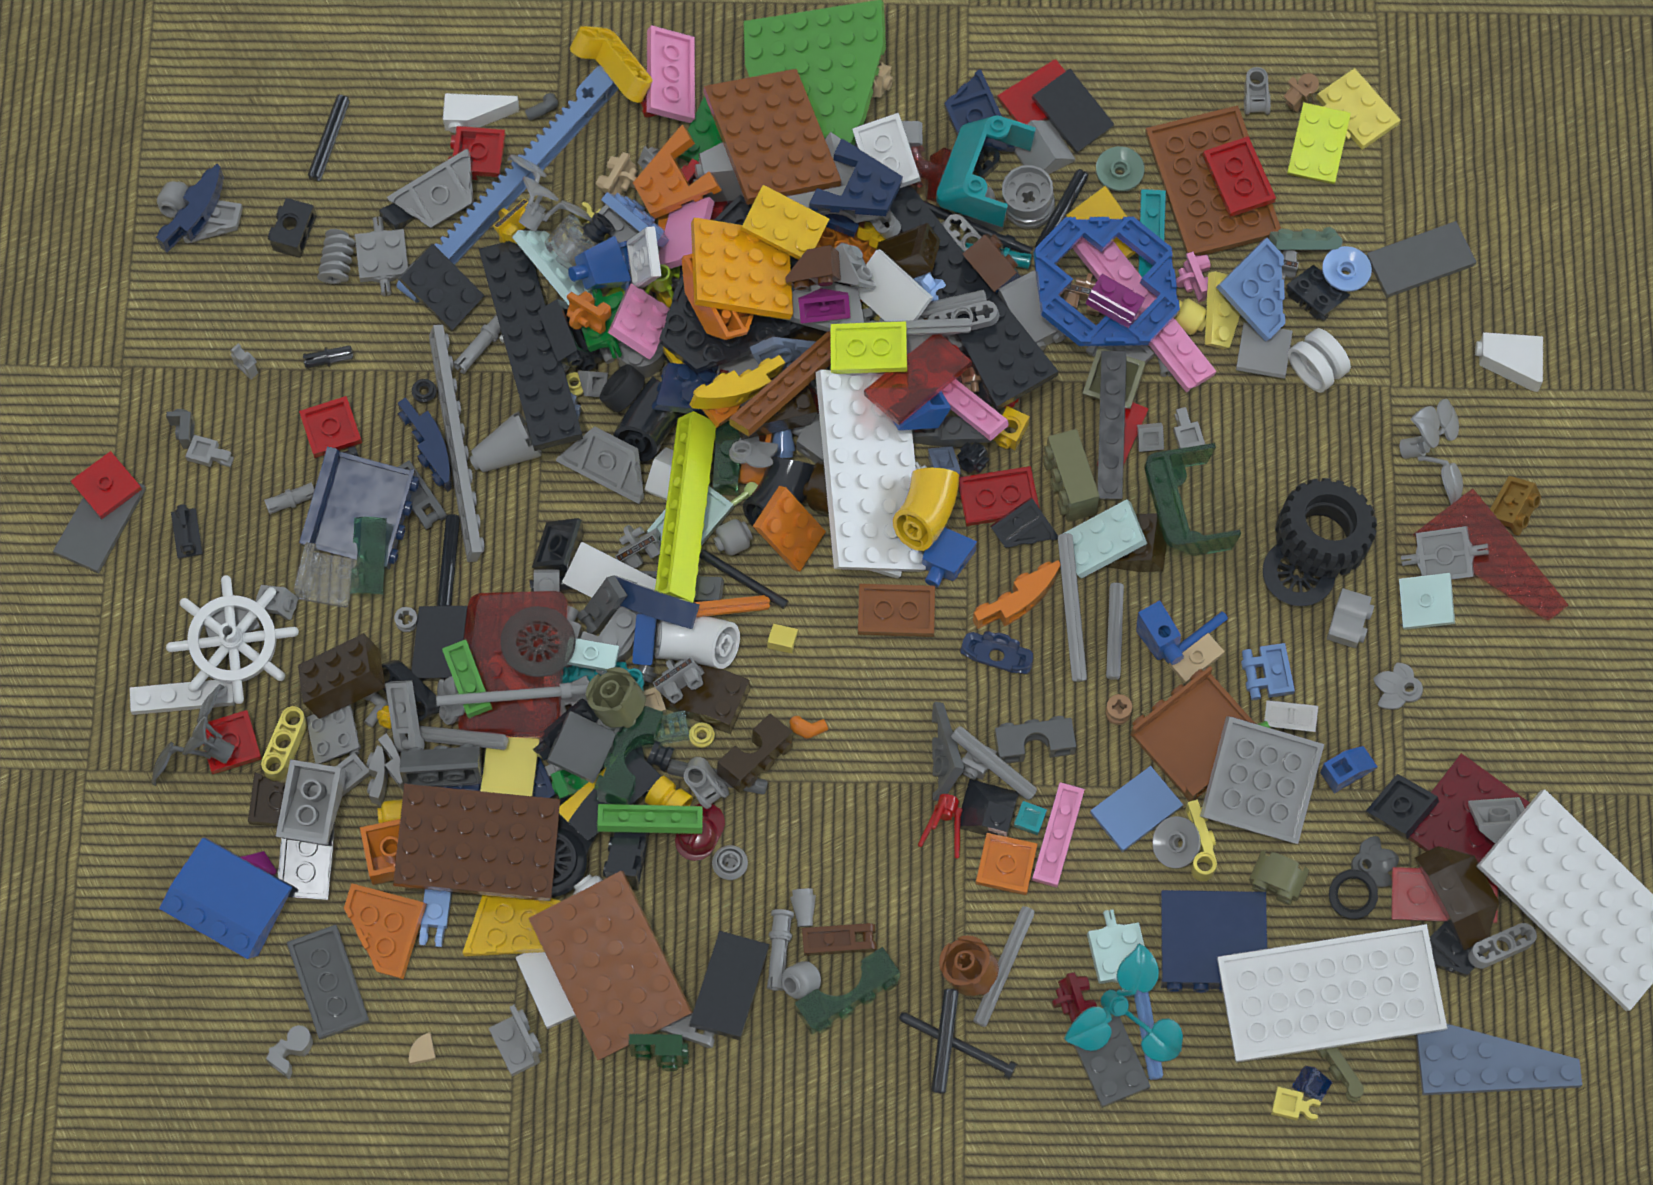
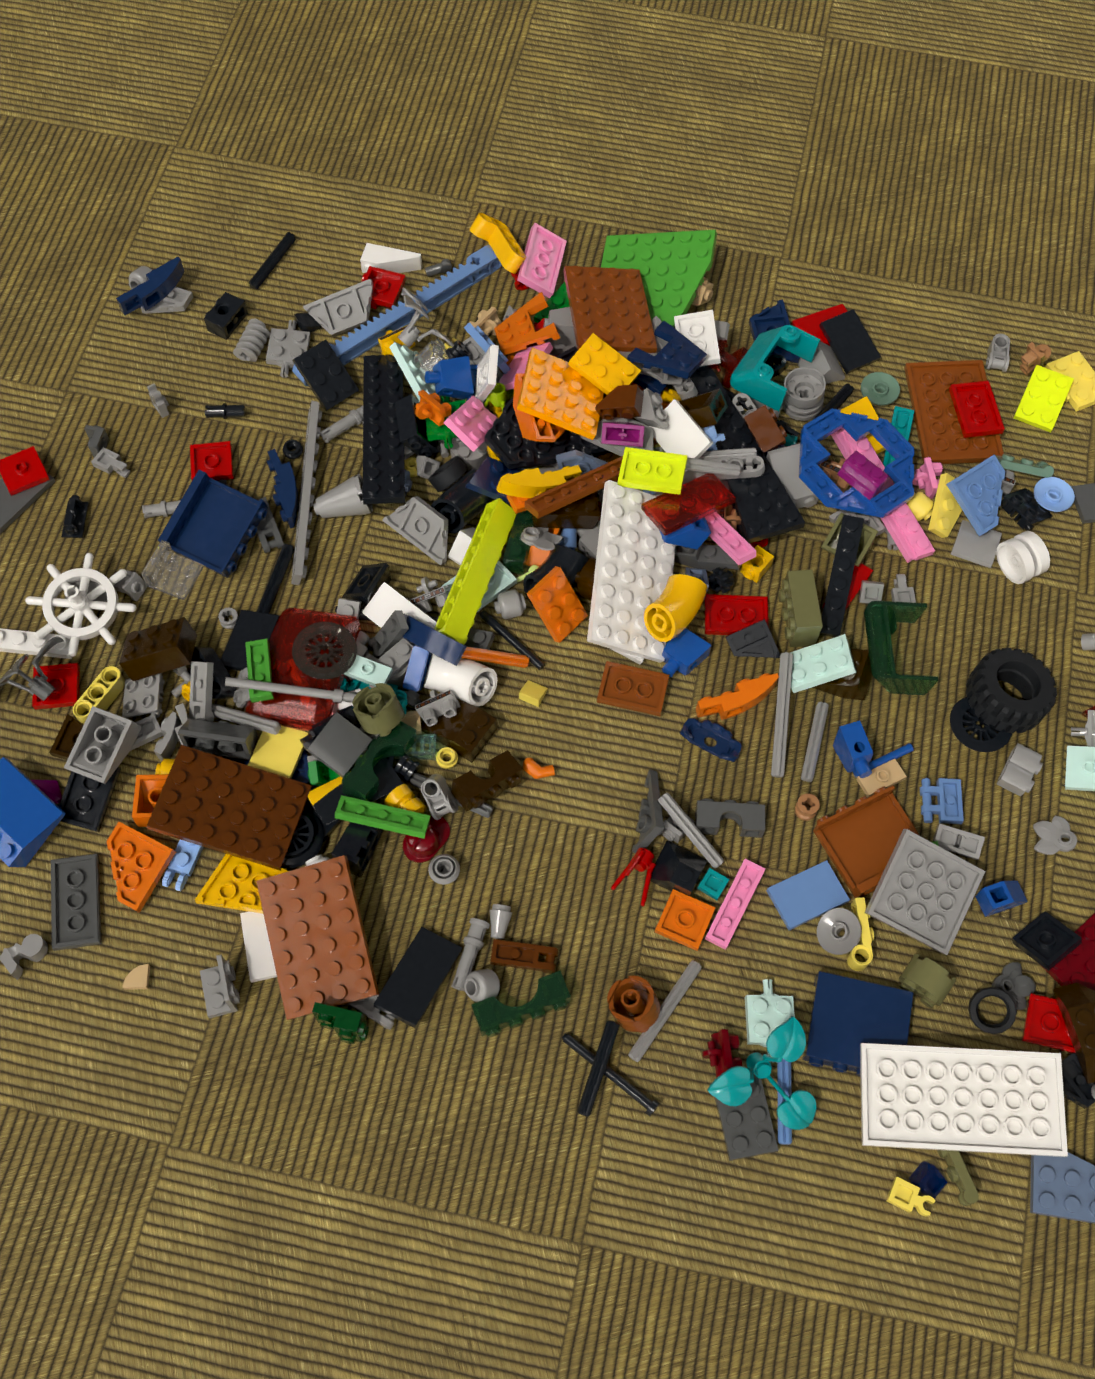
camera: 10 degrees right, 5 degrees down
(369, 570) = (210, 560): clear green arch -> none

